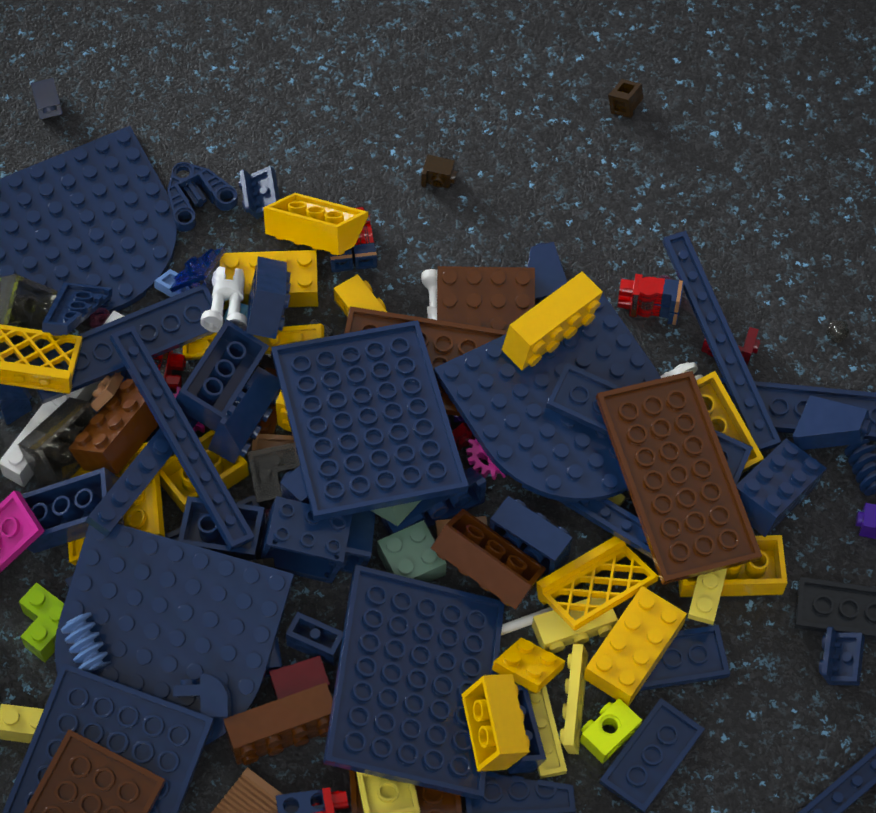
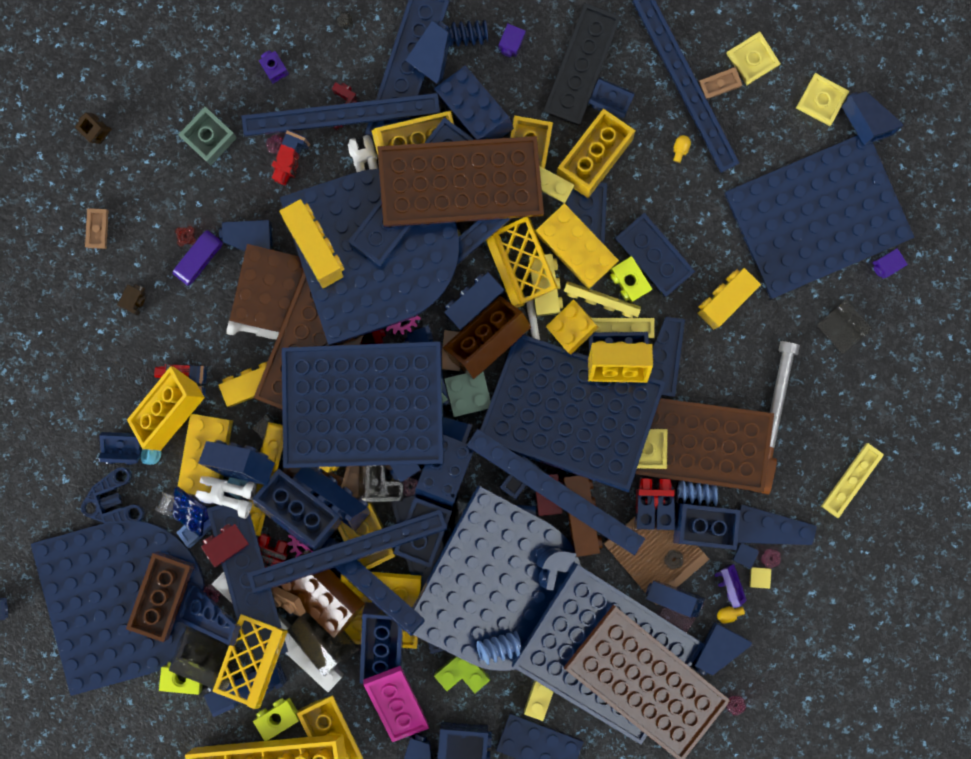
camera: 75 degrees left, 25 degrees up
(89, 257) = (160, 596): none -> reddish brown brick
(164, 305) = (224, 545): none -> dark red brick
(198, 249) = (166, 503): none -> clear bush
(255, 222) = (150, 456): none -> medium azure tile
(303, 676) = (555, 492): none -> dark blue plate
(504, 229) = (197, 258): none -> dark purple beam
(511, 123) = (96, 228): none -> medium nougat plate
(527, 208) = (190, 236): none -> clear red plate
(651, 210) = (207, 136): none -> sand green brick
(755, 265) = (276, 72): none -> dark purple brick
(764, 646) = (596, 153): none -> yellow brick
(805, 761) = (681, 147): none -> yellow cylinder

